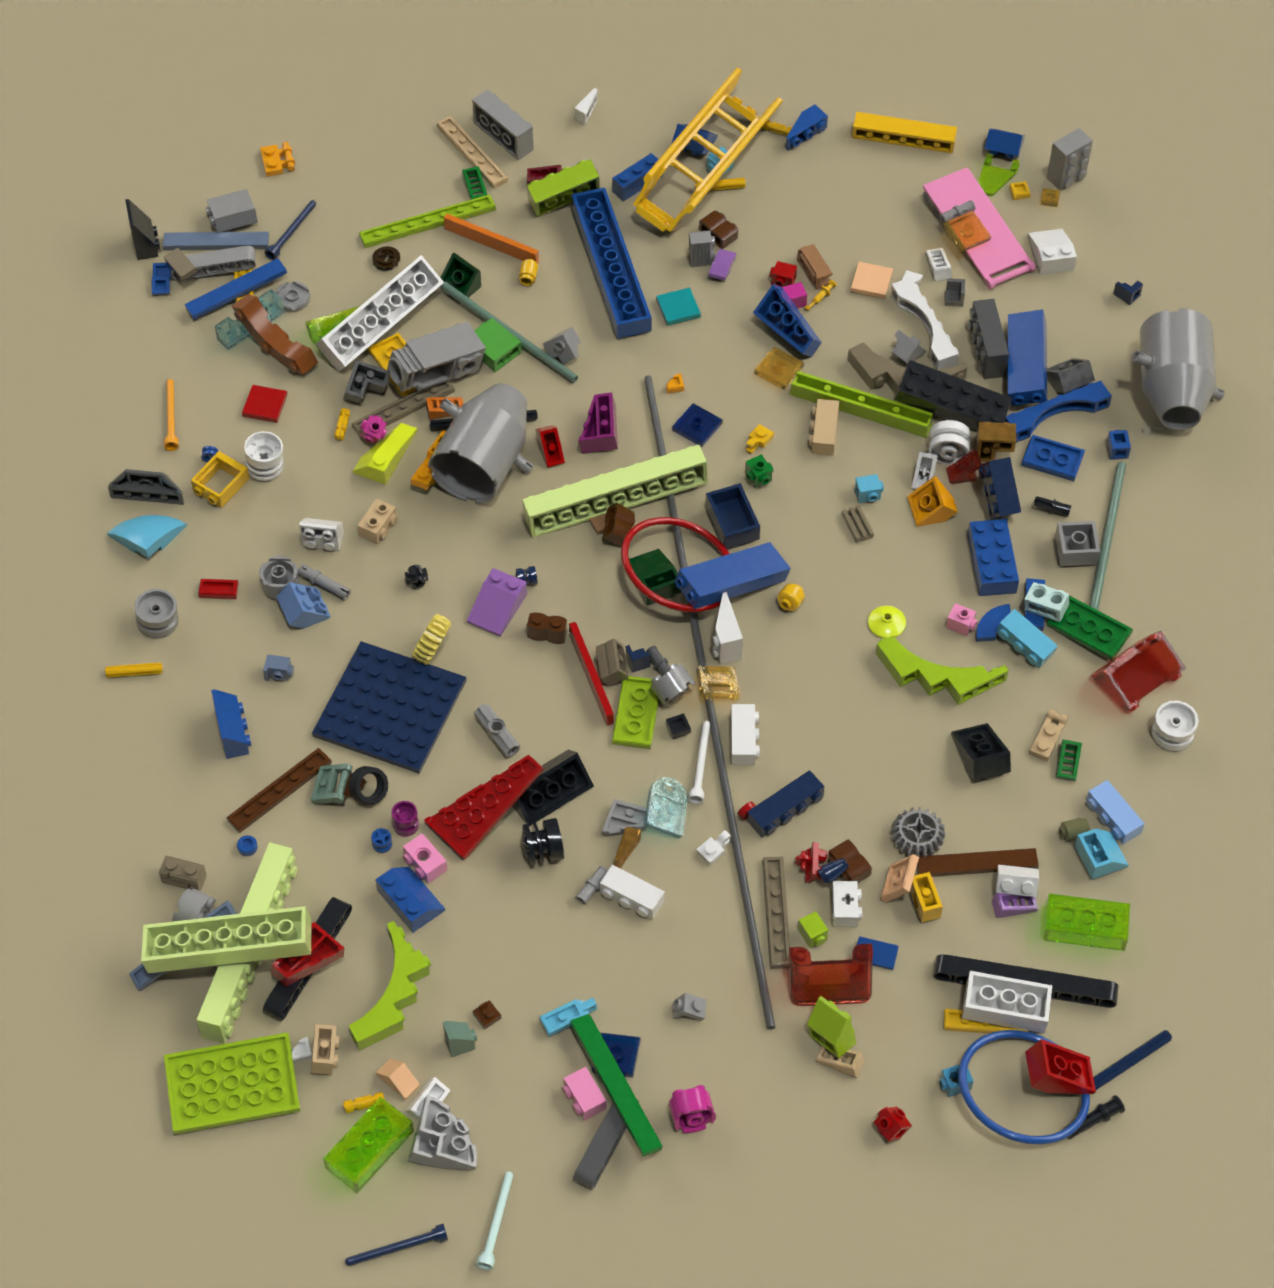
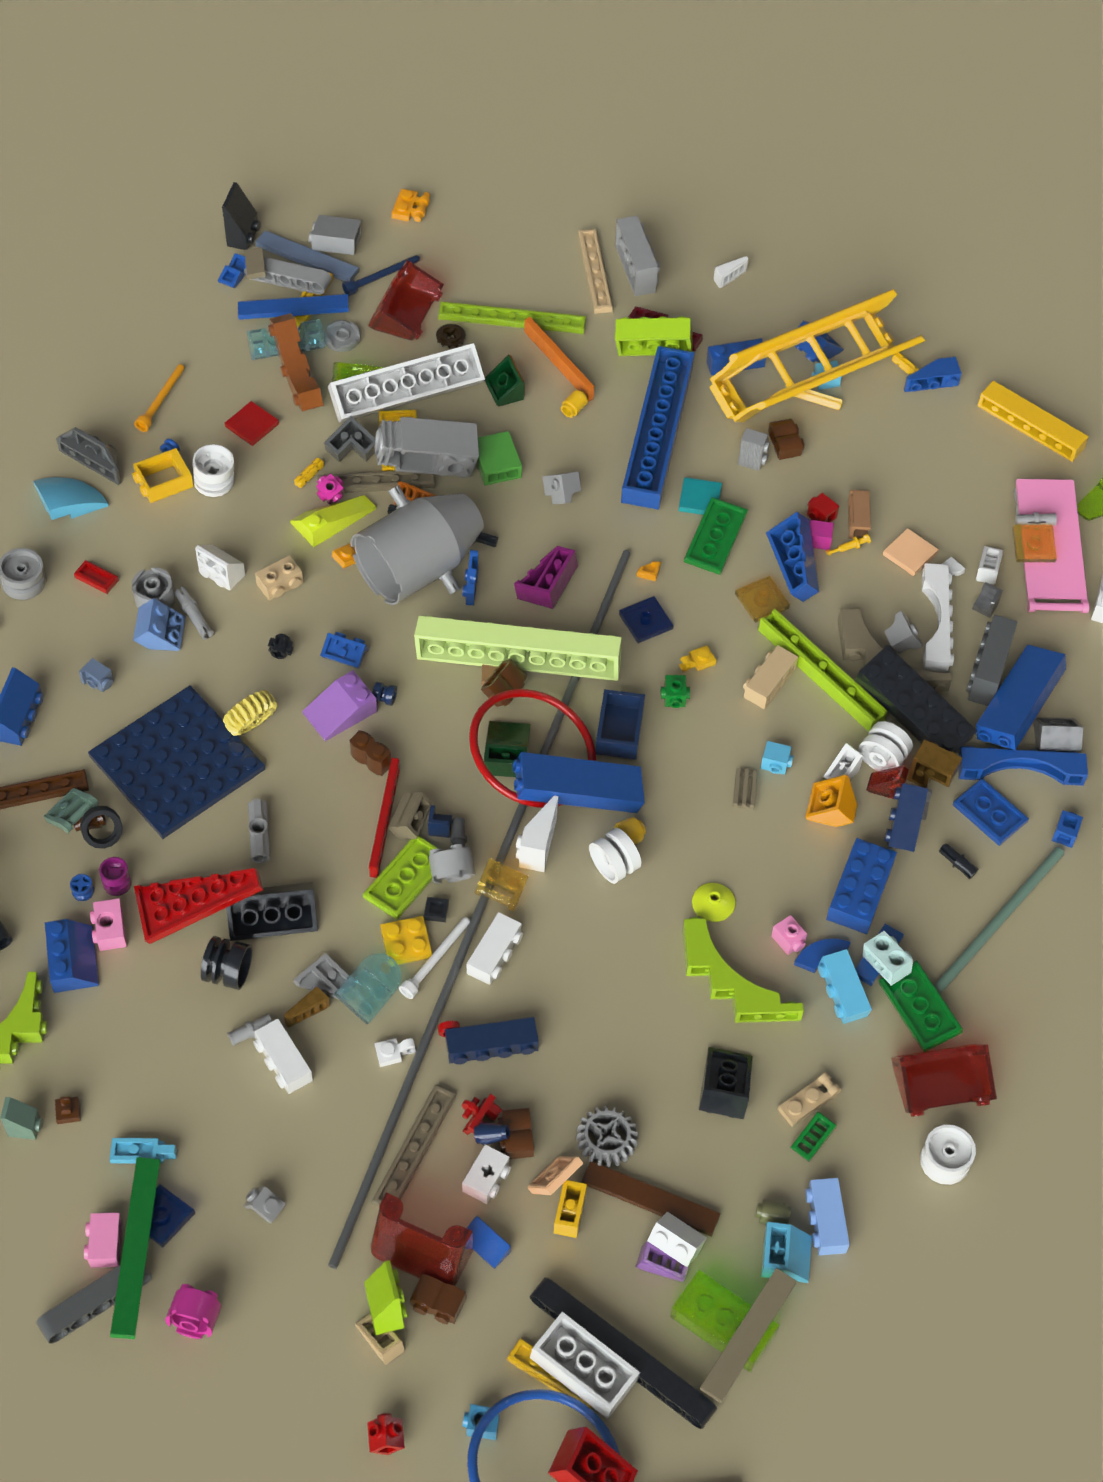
camera: 25 degrees right, 0 degrees up
(330, 245) = (406, 303): none -> clear red windscreen
(470, 556) = (344, 650): none -> blue bracket
(472, 172) = (579, 289): green slope -> none
(526, 344) = (526, 465): sand green piece -> none
(537, 450) = (471, 577): none -> blue wing
(550, 445) = (488, 577): red slope -> none
(669, 760) = (406, 940): none -> yellow plate
(711, 332) = (715, 536): none -> green tile
(722, 263) = (767, 474): medium lavender slope -> none
(794, 619) = (615, 855): none -> white wheel
(813, 929) = (436, 1185): lime brick -> none
(868, 1010) = (437, 1299): none -> reddish brown brick
(1077, 543) = (959, 911): light grey brick -> none
(1114, 920) = (748, 1335): none -> dark tan tile

